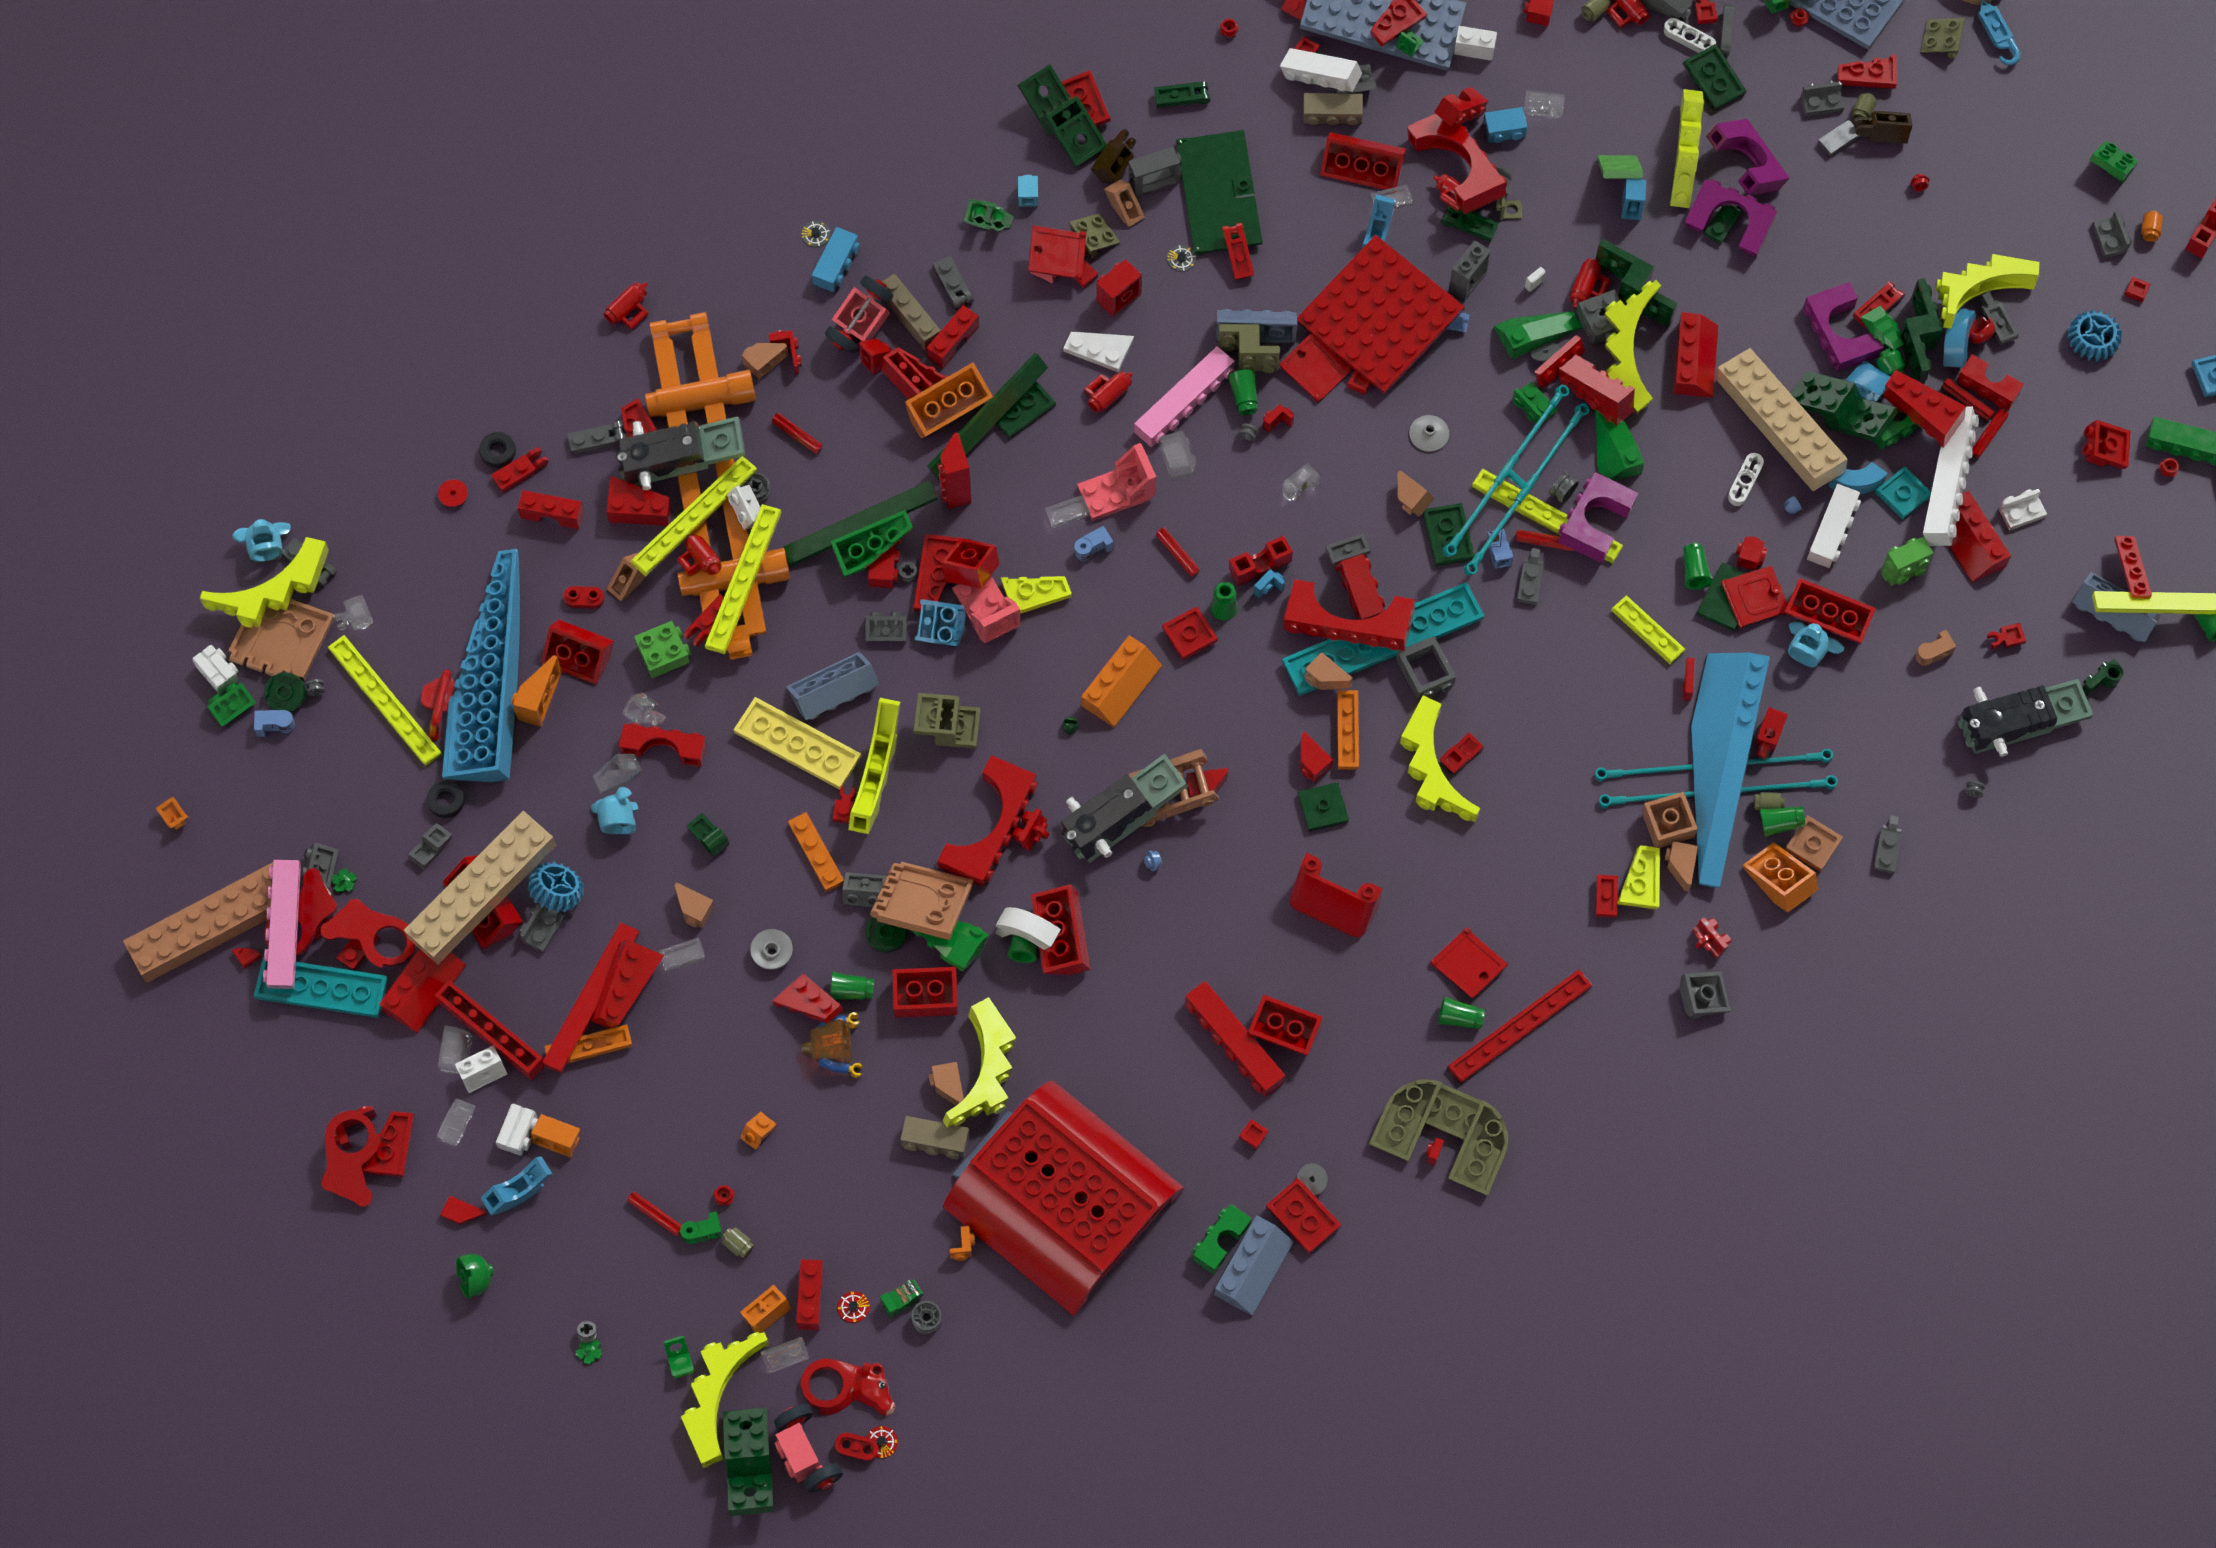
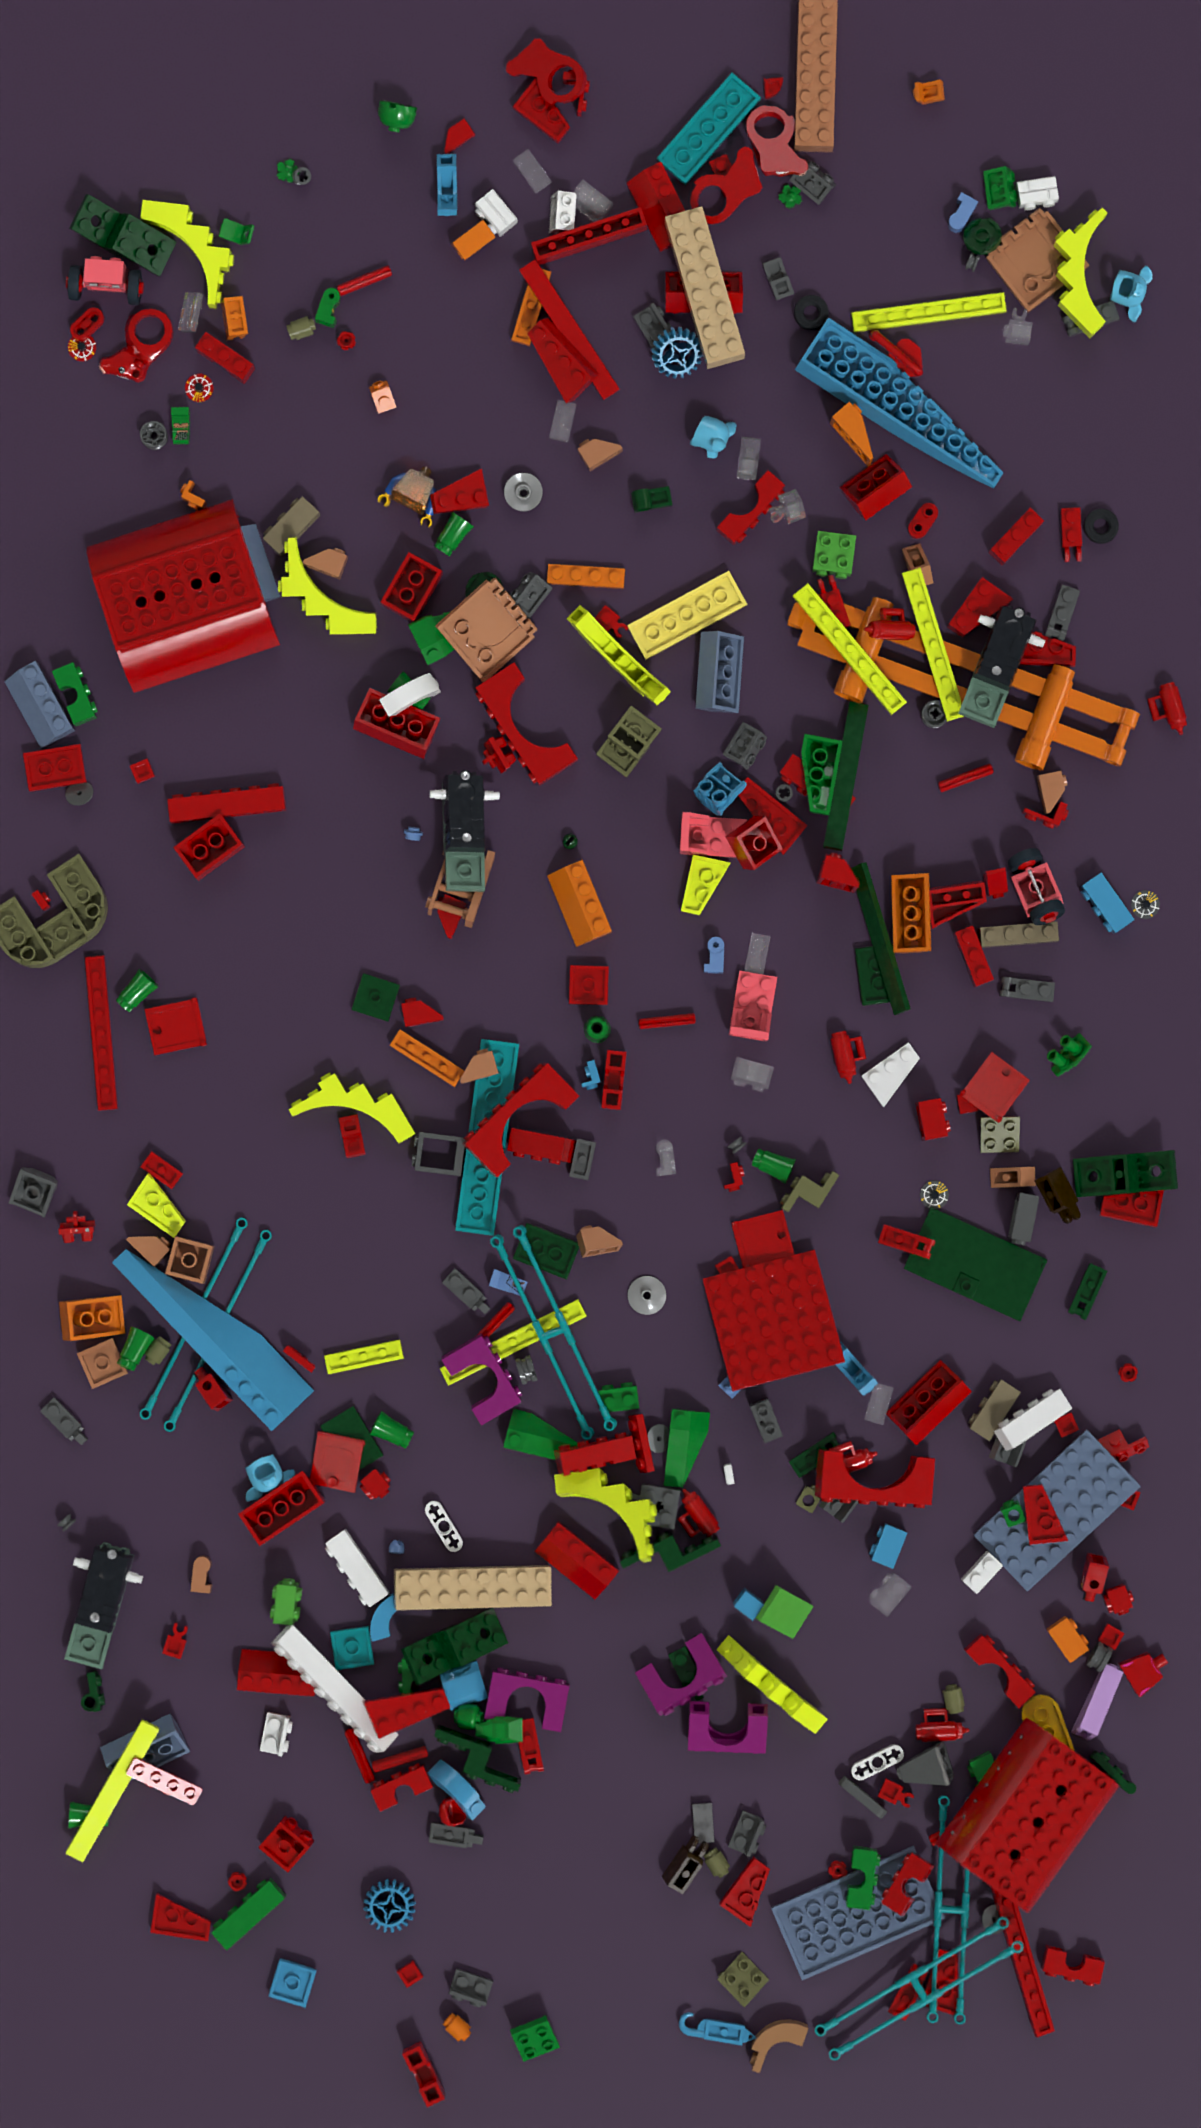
camera: 125 degrees right, 20 degrees up
(283, 924) = (771, 121): bright pink brick -> none
(452, 493) = (1082, 467): red piece -> none
(745, 505) = (918, 691): white bracket -> none
(1028, 190) = (1074, 1103): medium azure brick -> none
(1184, 396) = (801, 1112): bright pink brick -> none
(1273, 326) = (829, 1213): sand blue slope -> none
(1332, 903) = (266, 957): red windscreen -> none
(1460, 109) = (920, 1504): red arch -> none
(1714, 77) = (824, 1755): dark green tile -> none
(1920, 182) = (619, 1861): red plate -> none
(1977, 279) = (492, 1865): neon yellow arch -> none

